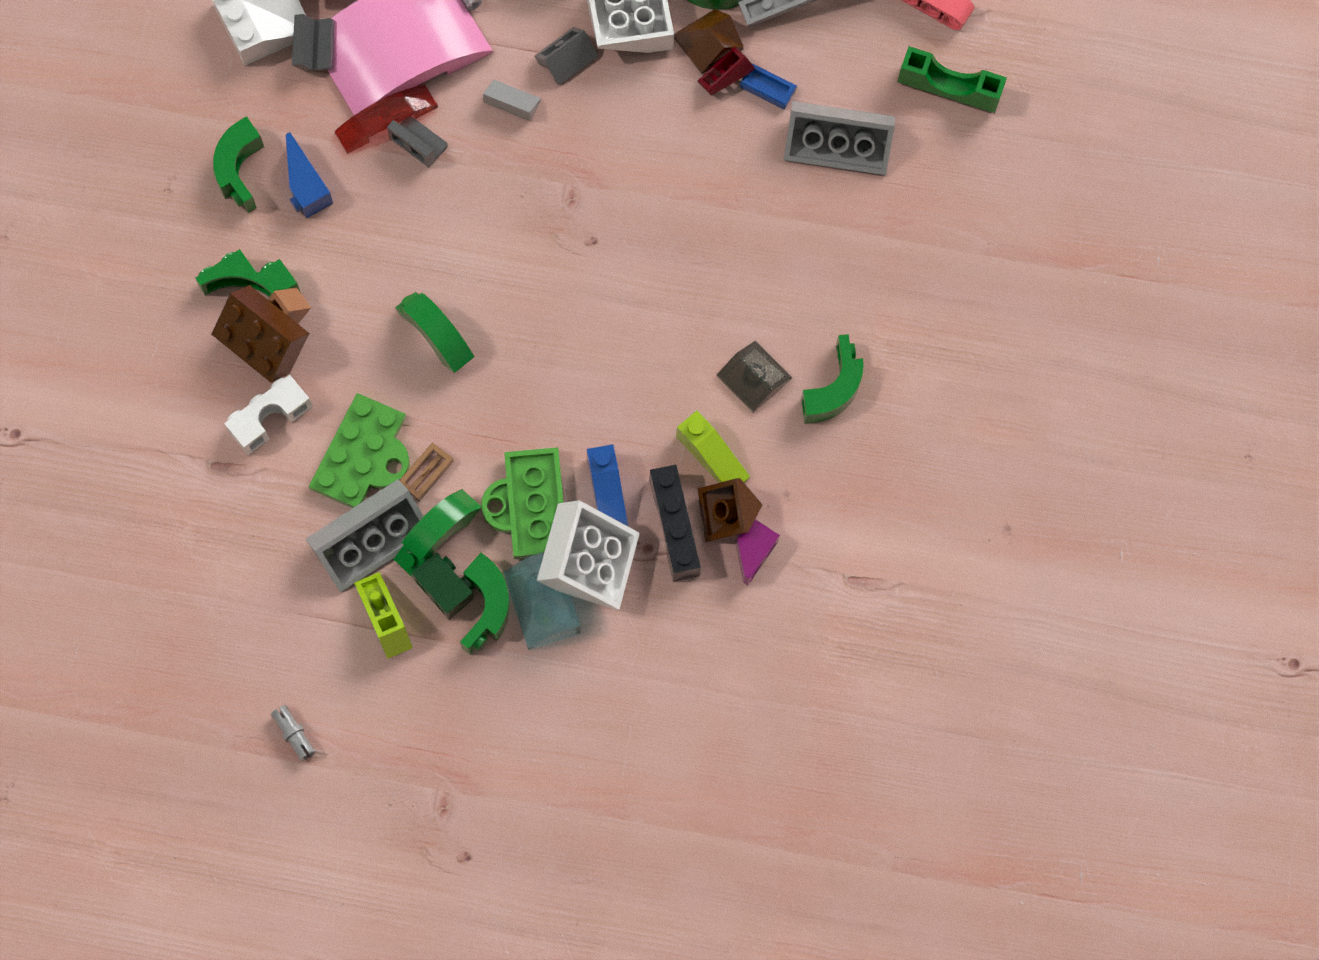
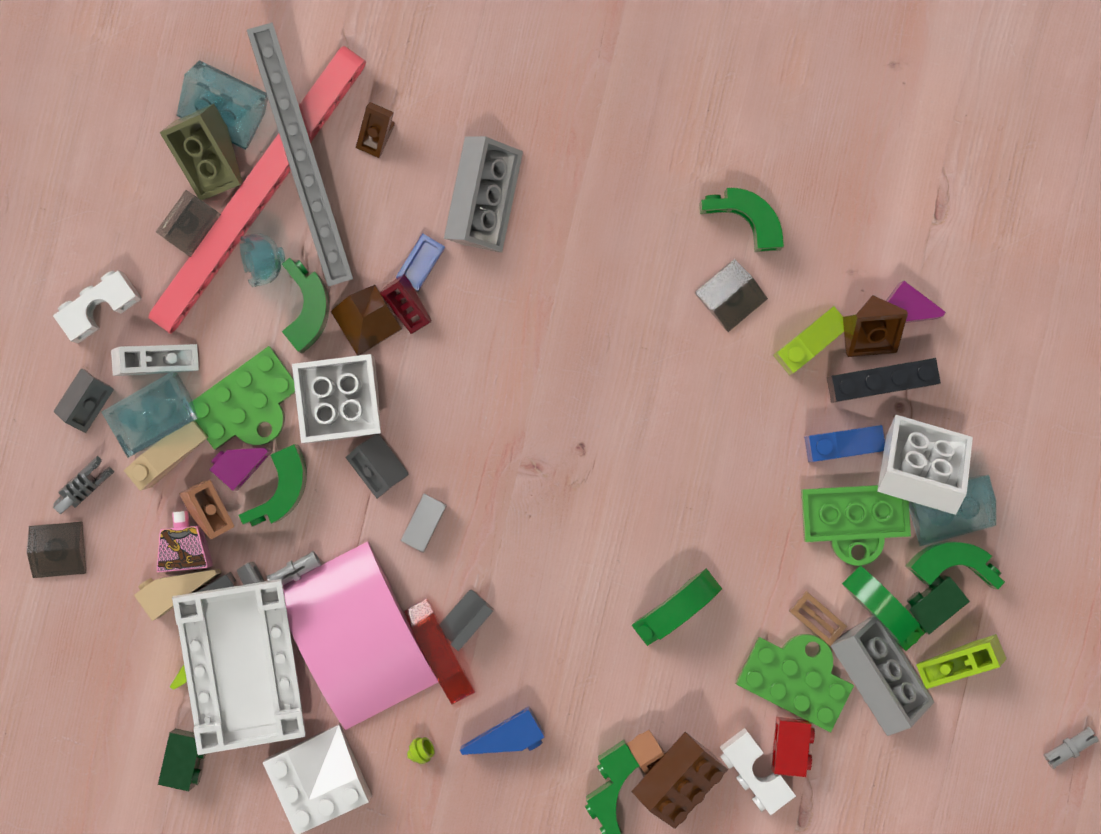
camera: 80 degrees left, 15 degrees up
(230, 153) = (484, 813): green arch -> none
(289, 103) = (421, 750): none -> lime plate
(293, 447) = (792, 747): none -> red brick
(313, 43) = (357, 725): dark grey panel -> none
(894, 37) = (375, 129): none -> reddish brown slope
(974, 89) = (430, 73): green arch -> none

